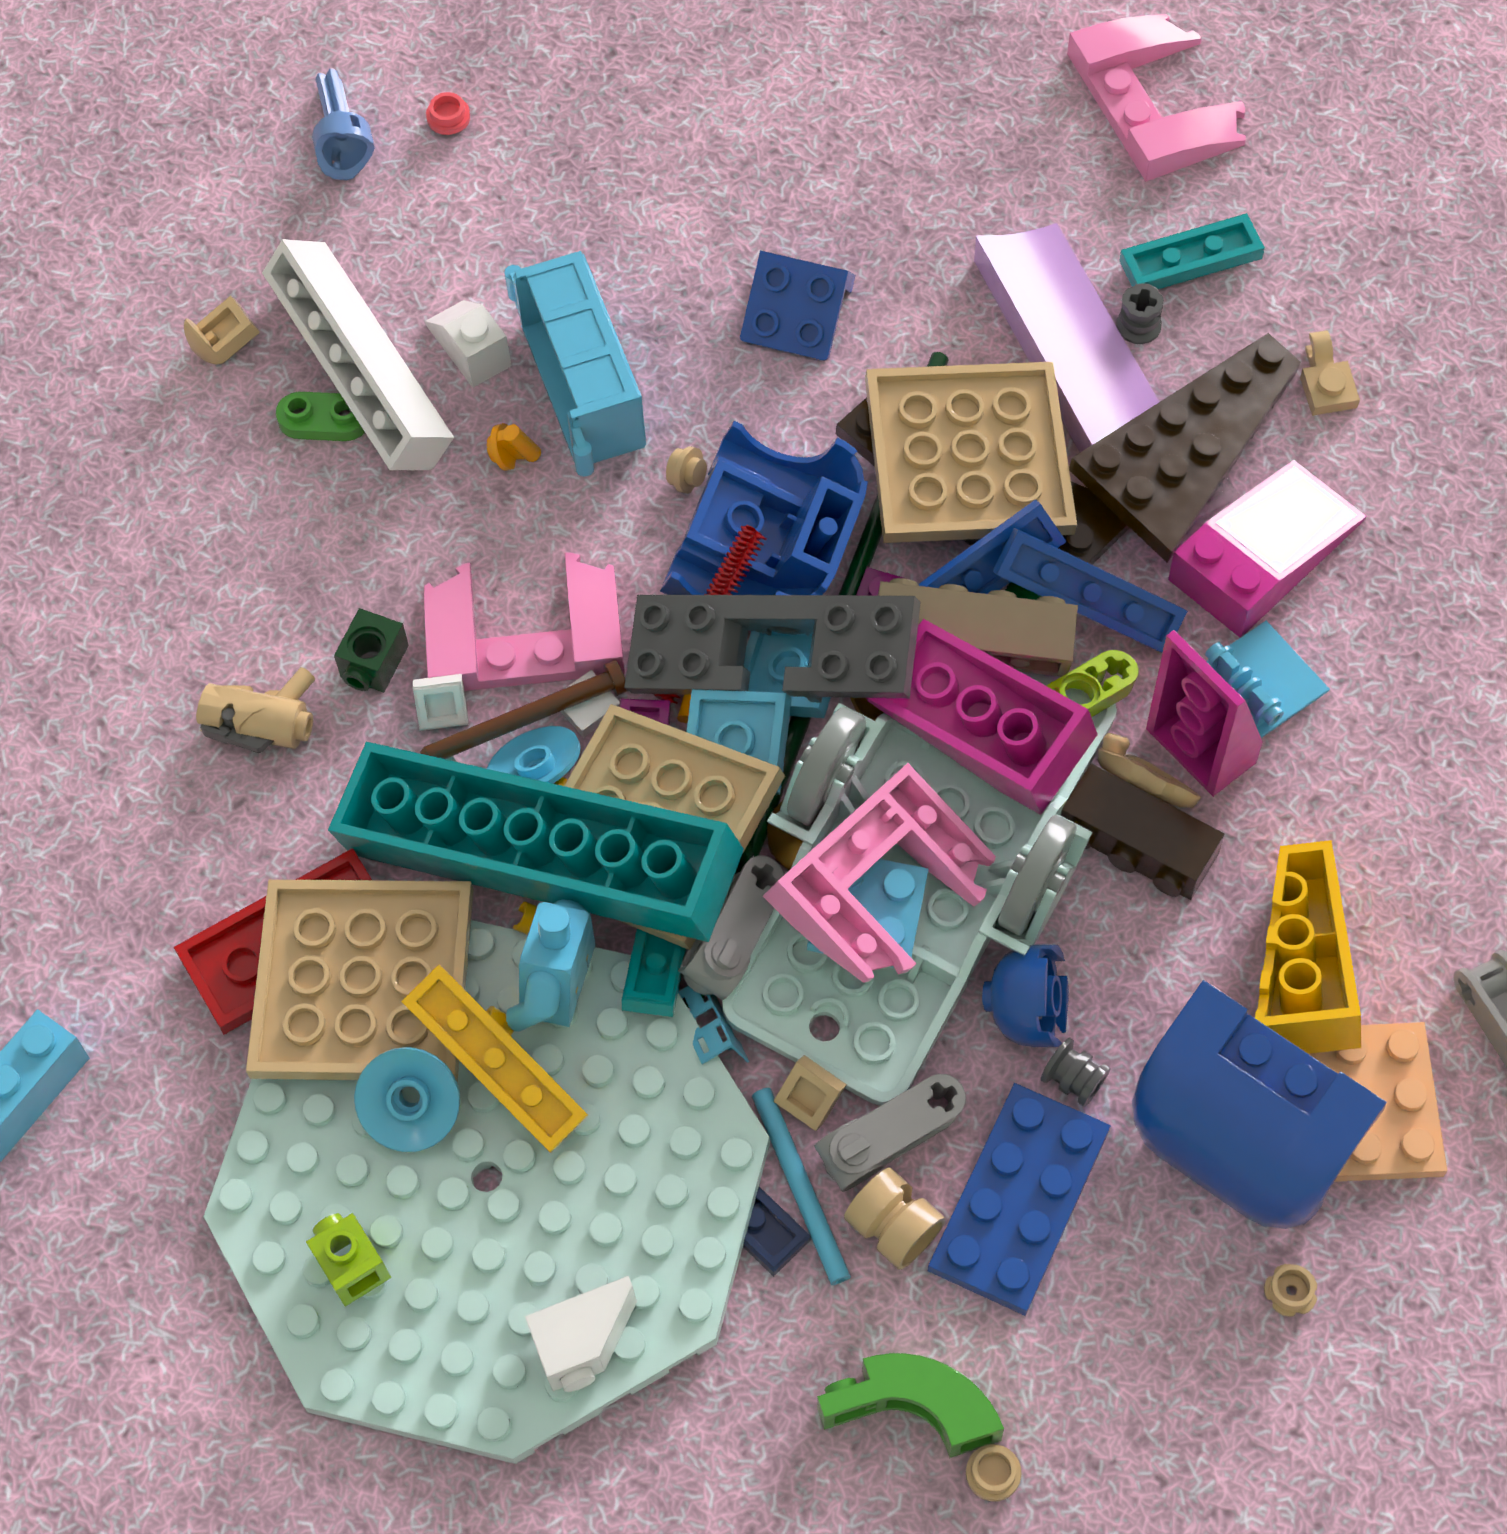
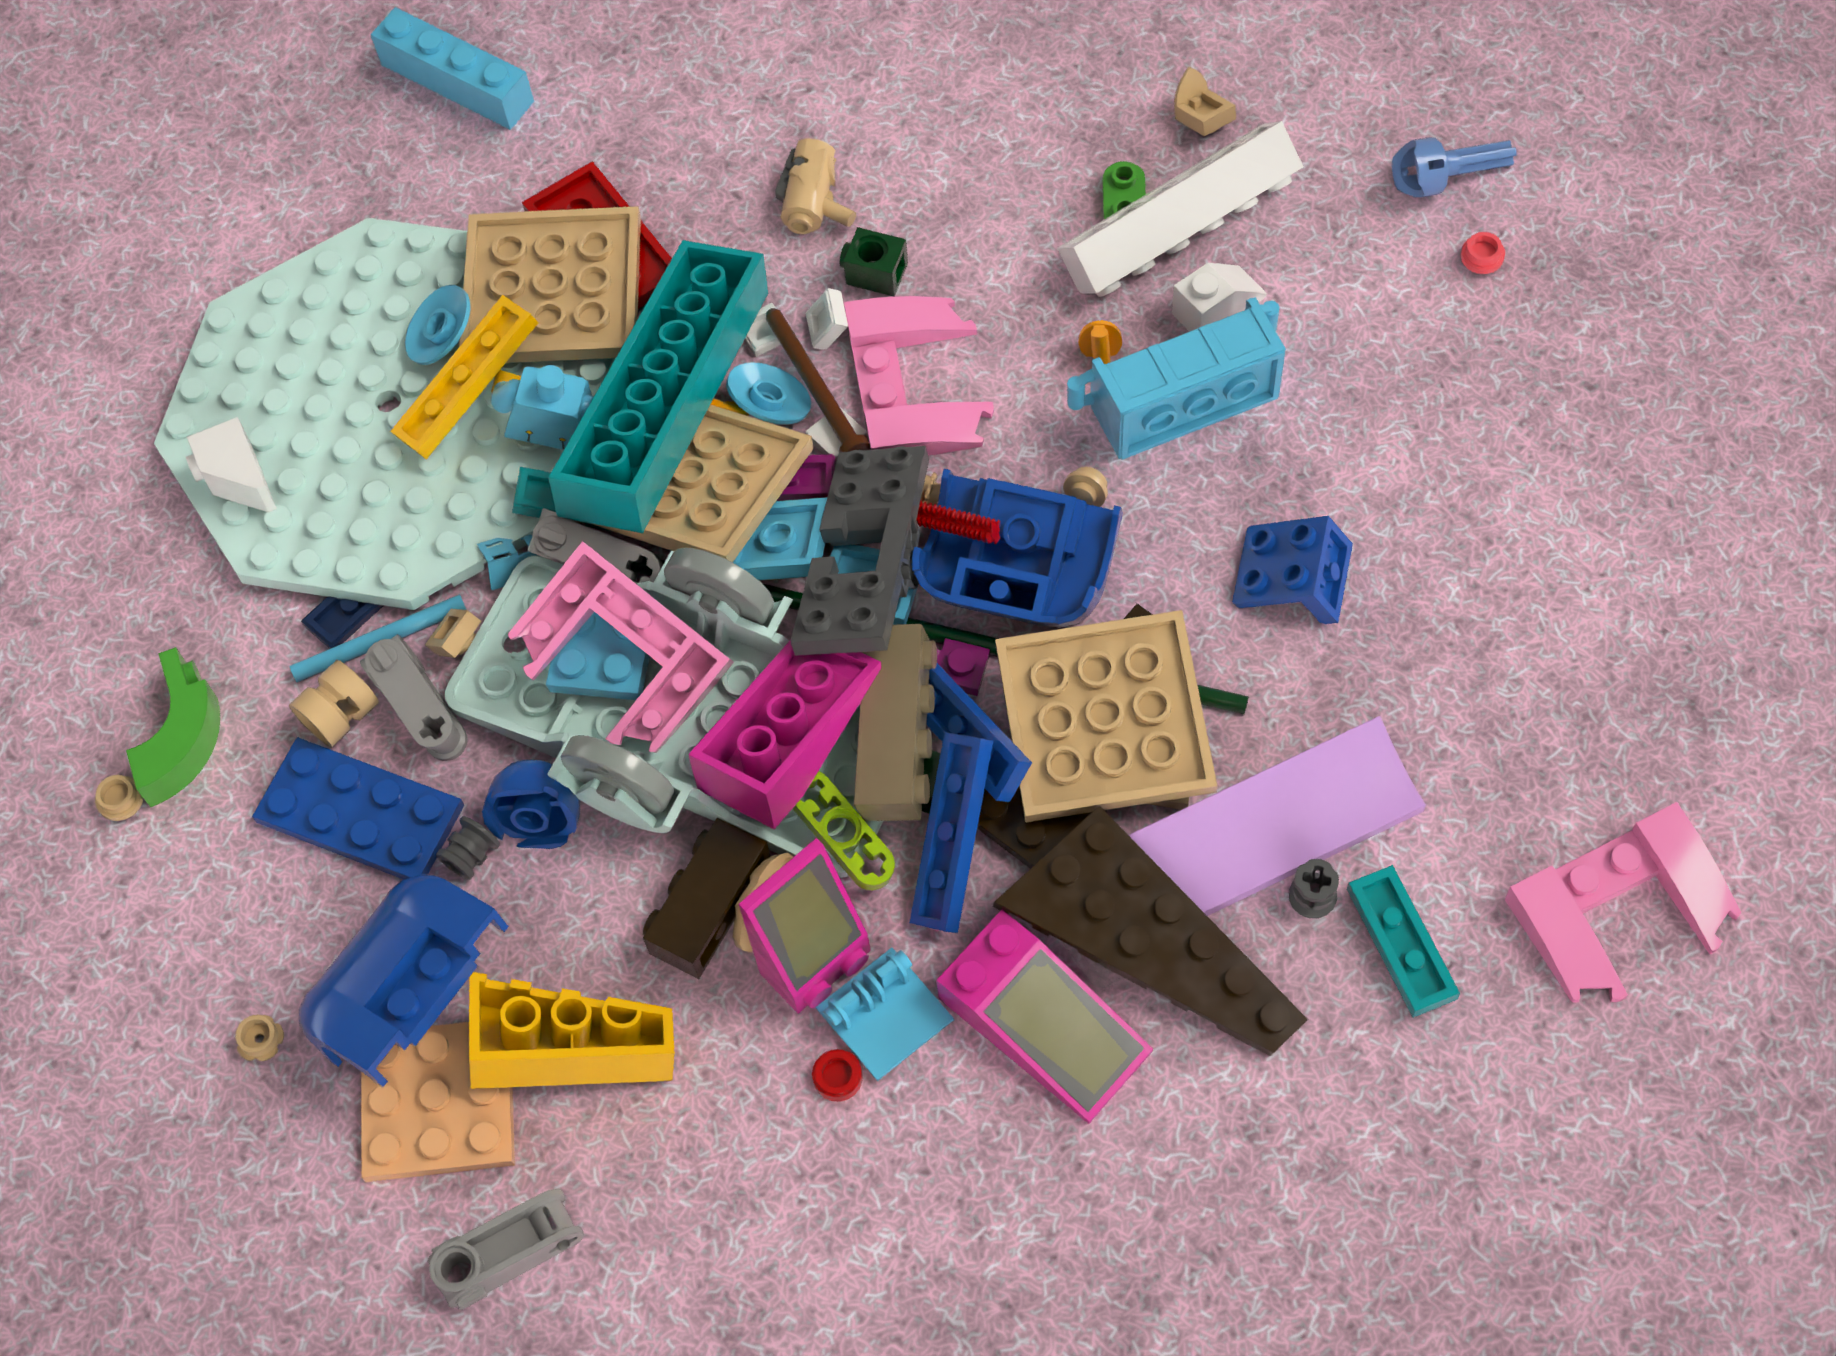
camera: 90 degrees right, 0 degrees up
(358, 1269) = (311, 304): lime brick -> none
(1323, 725) = (837, 1075): none -> red tile
(1325, 383) = (1252, 1085): tan plate -> none

